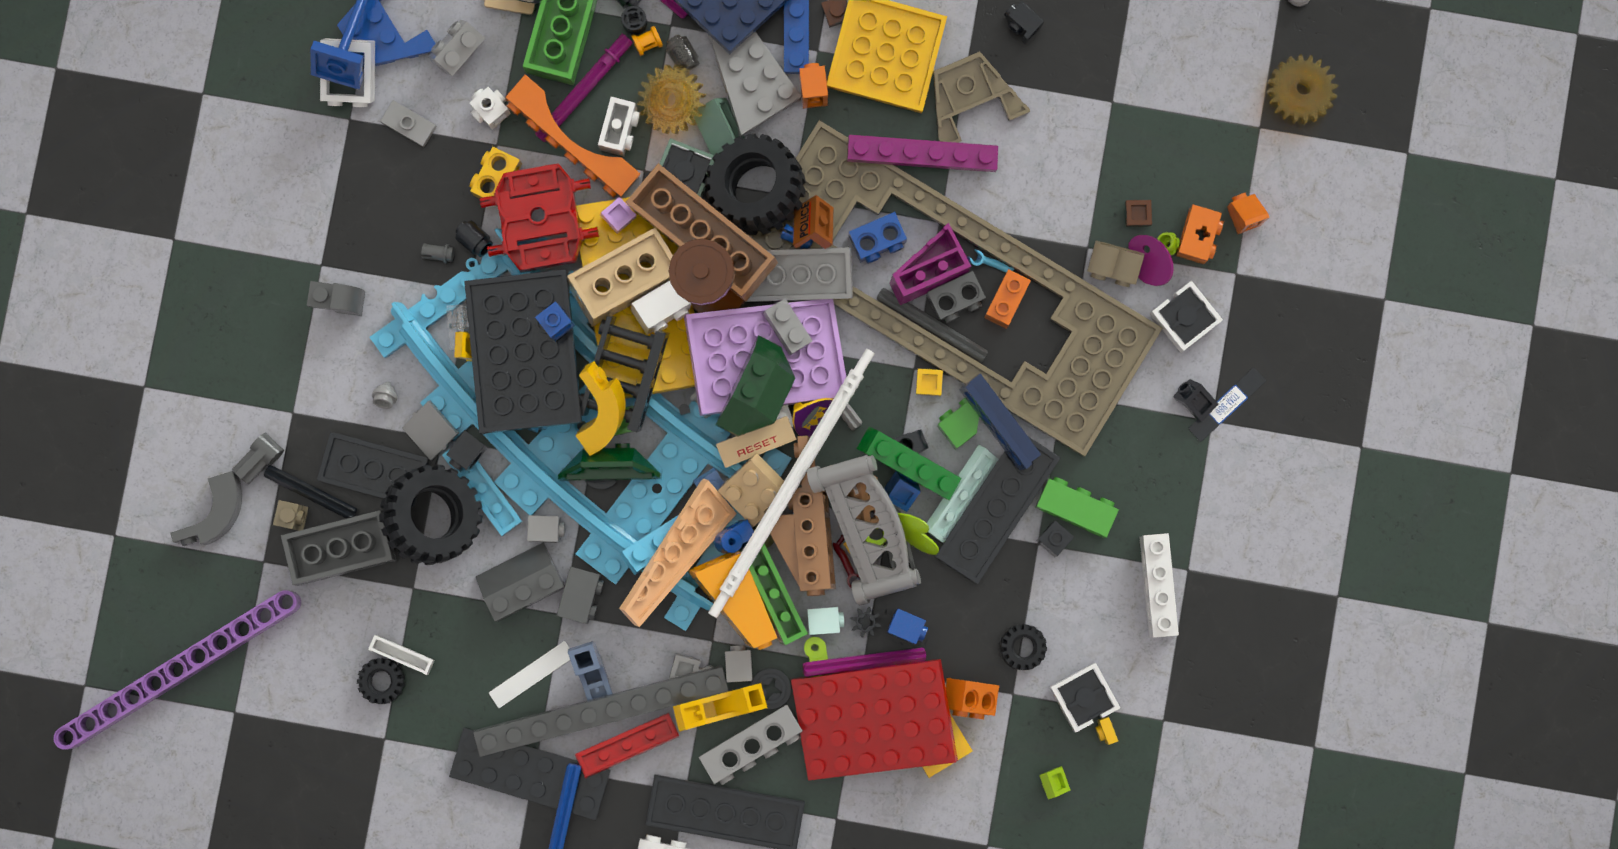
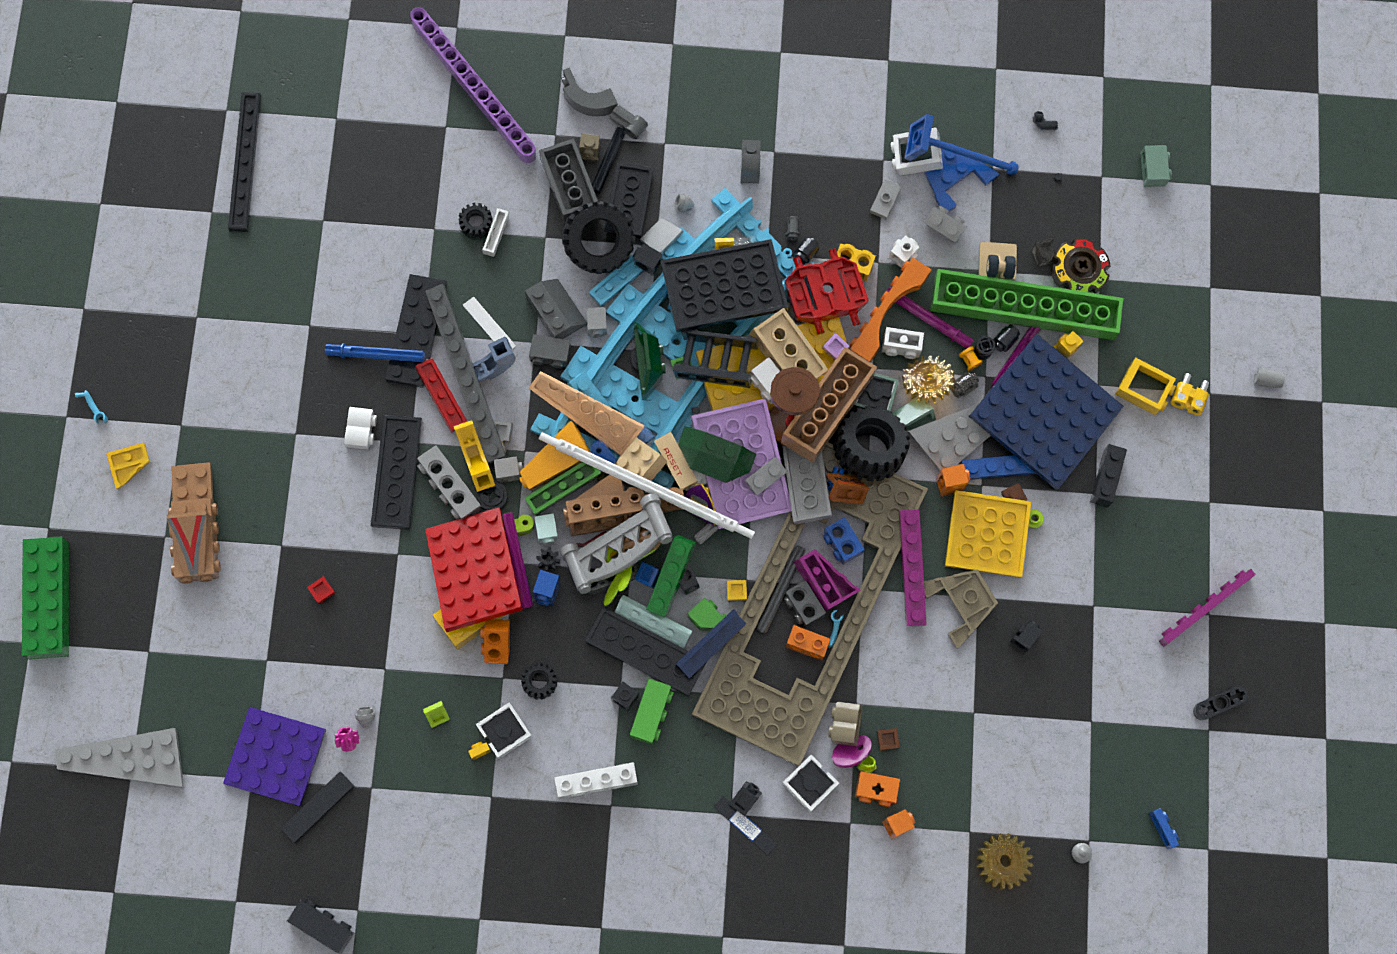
camera: 80 degrees right, 10 degrees down
(555, 321) = (748, 301): blue brick -> none
(611, 409) = (688, 348): yellow arch -> none

